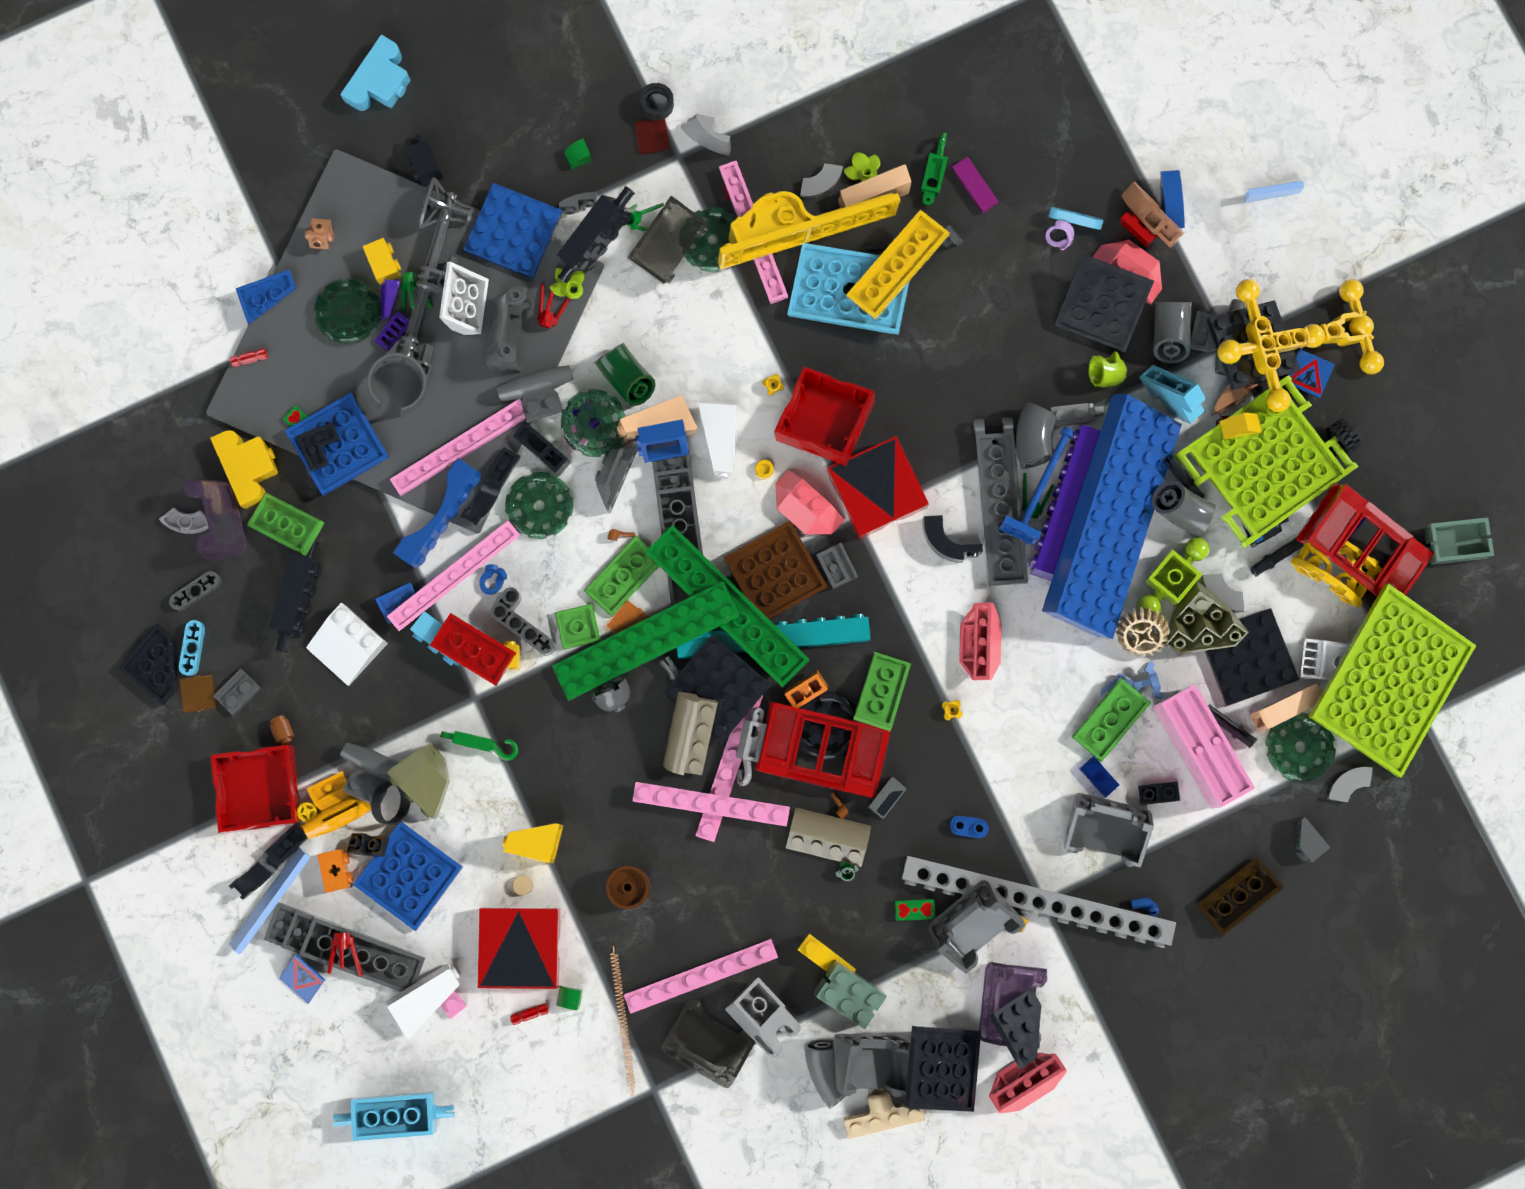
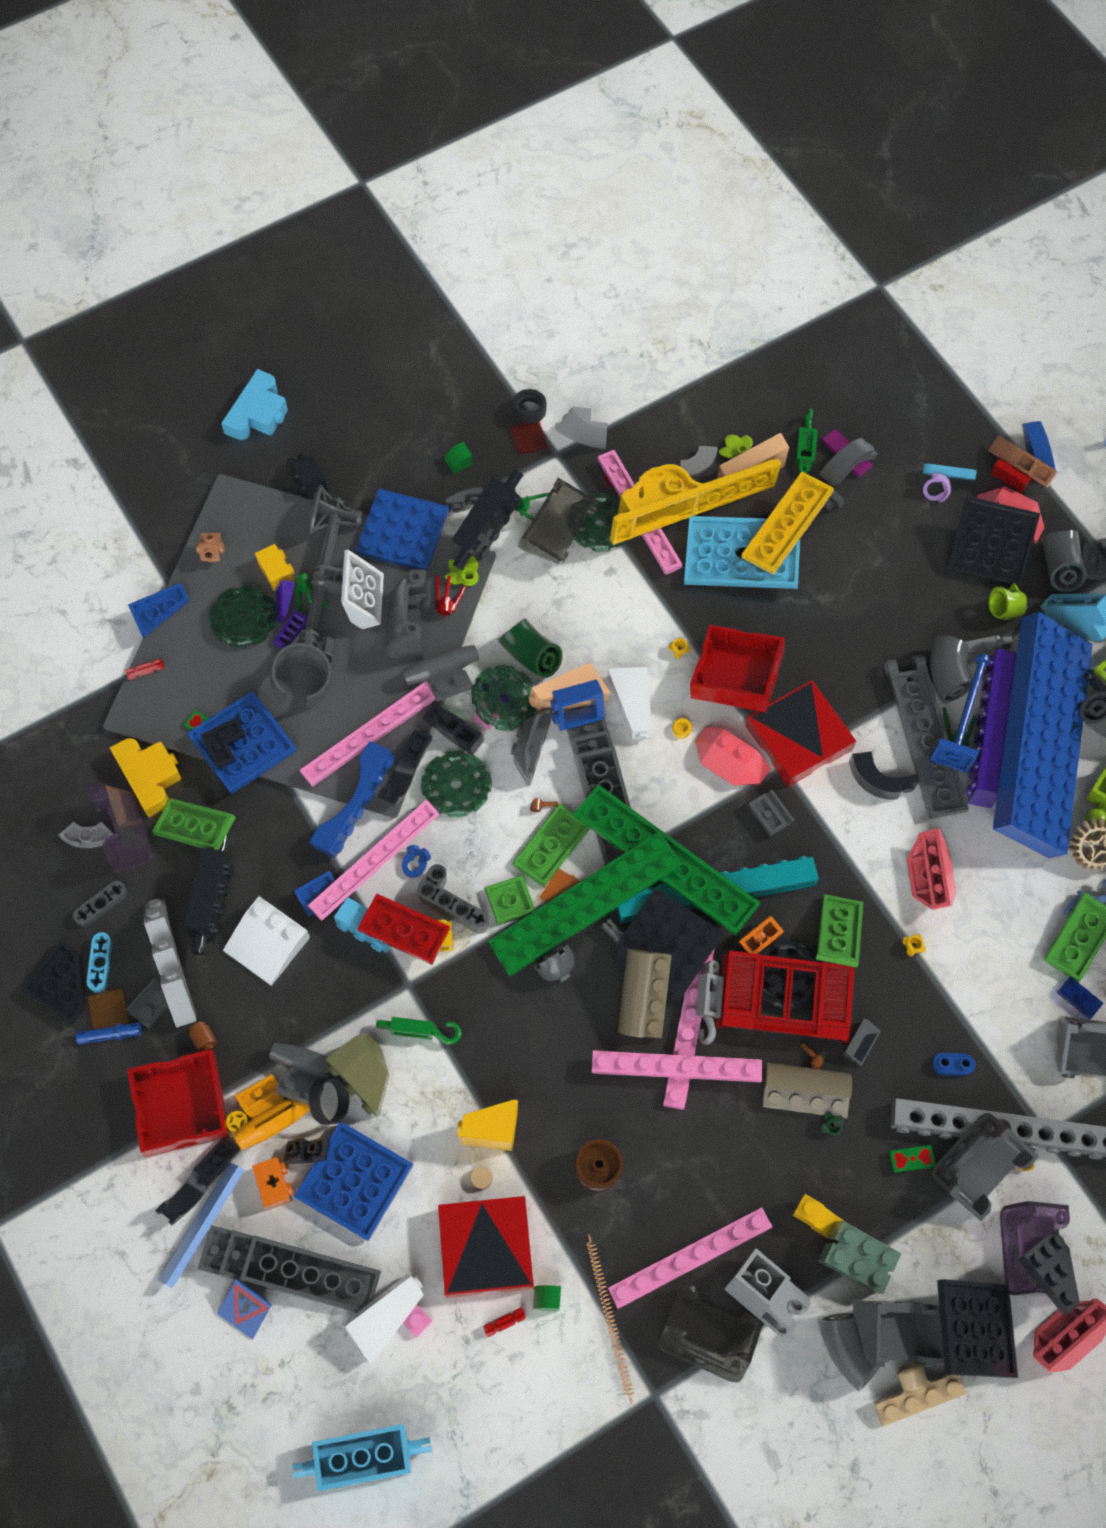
camera: 10 degrees left, 15 degrees down
(205, 716) = (114, 1032): none -> blue pin
(250, 653) = (168, 963): none -> light grey arch
(341, 942) = (287, 1258): red plant -> none
(775, 571) = (710, 822): reddish brown plate -> none
(972, 196) = (847, 460): none -> dark grey arch

